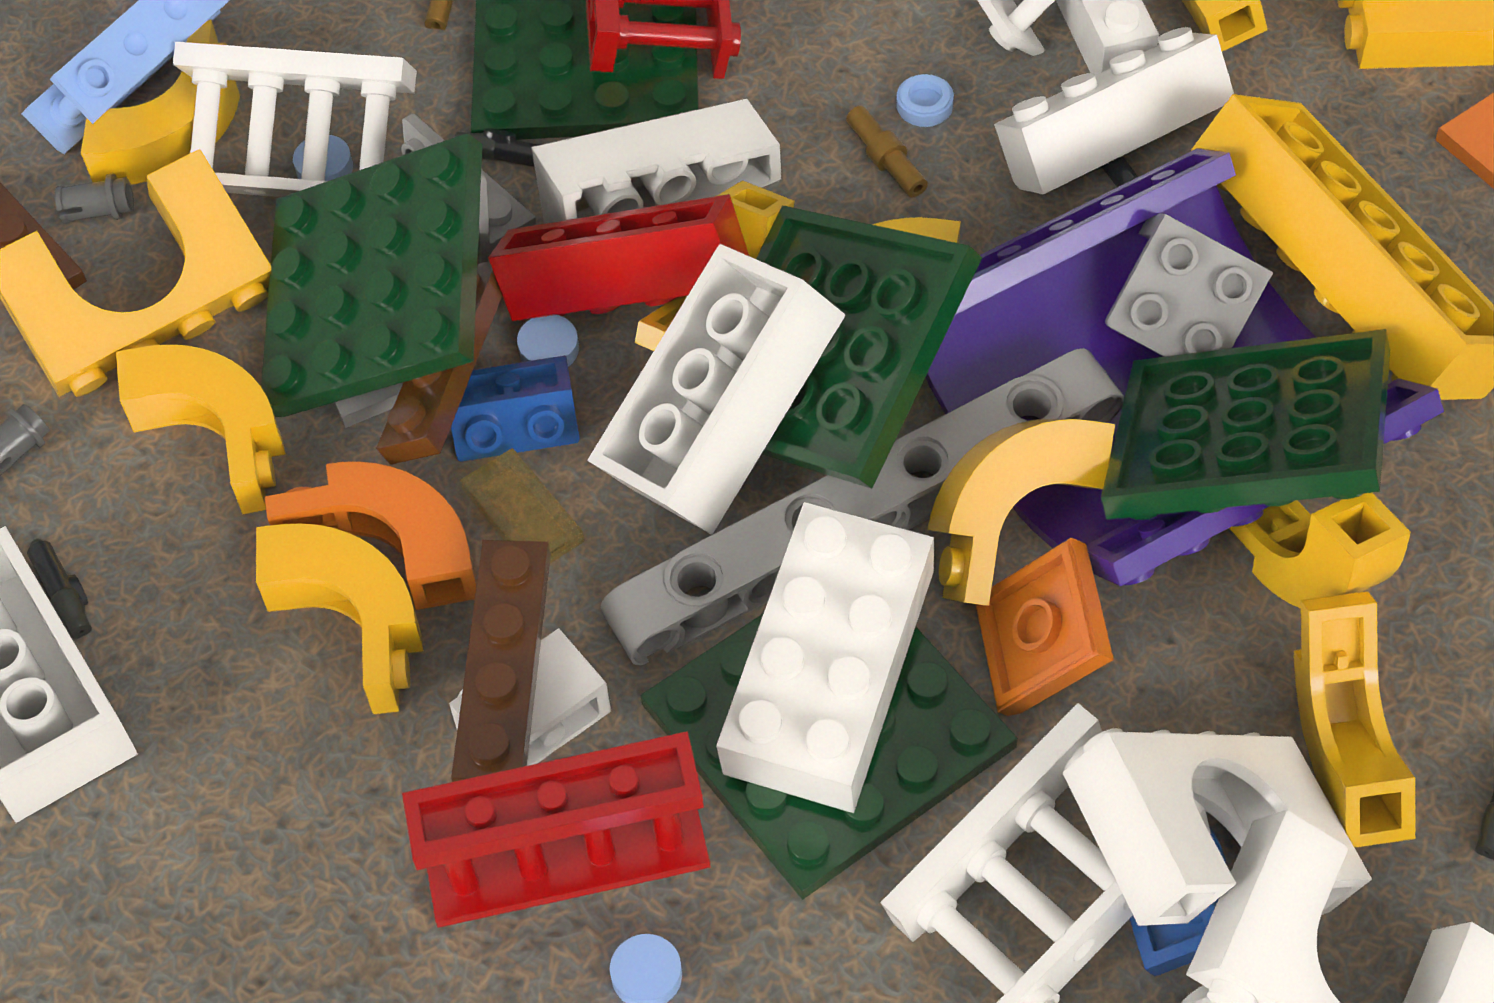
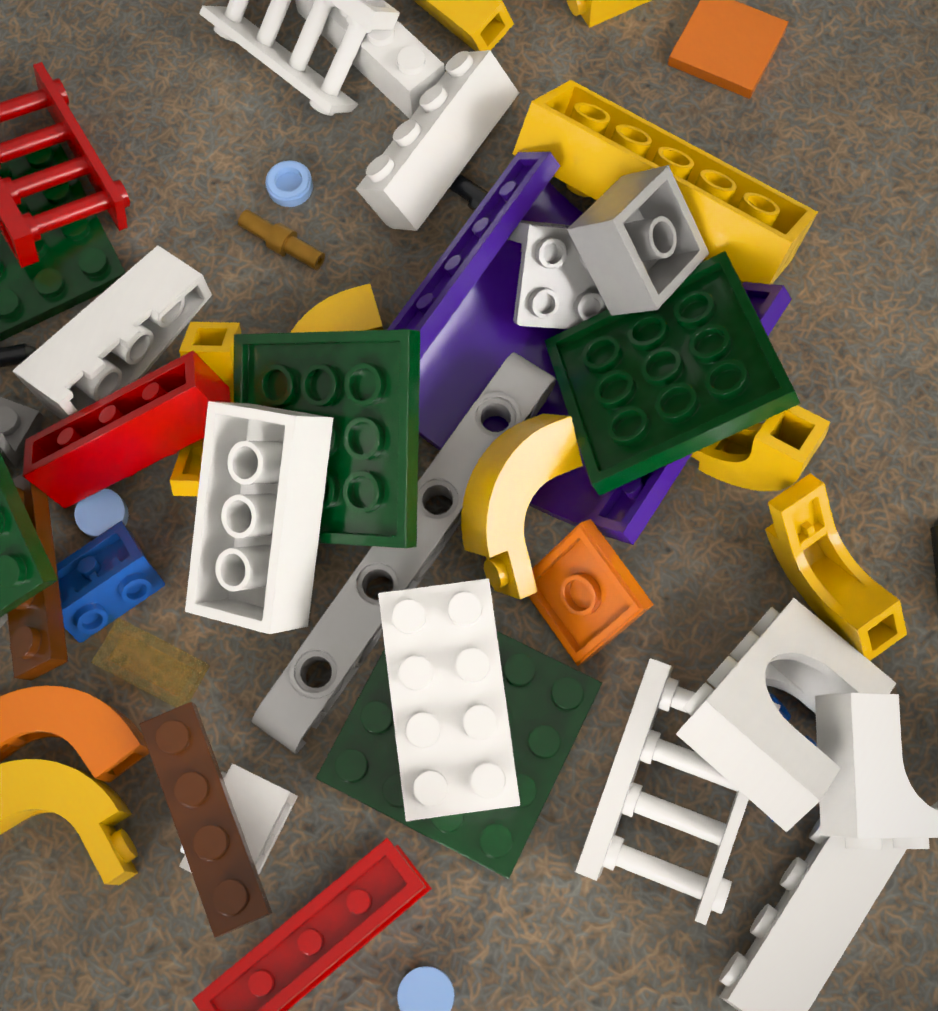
camera: 25 degrees left, 15 degrees up
(1286, 278) = (639, 241): none -> light grey brick

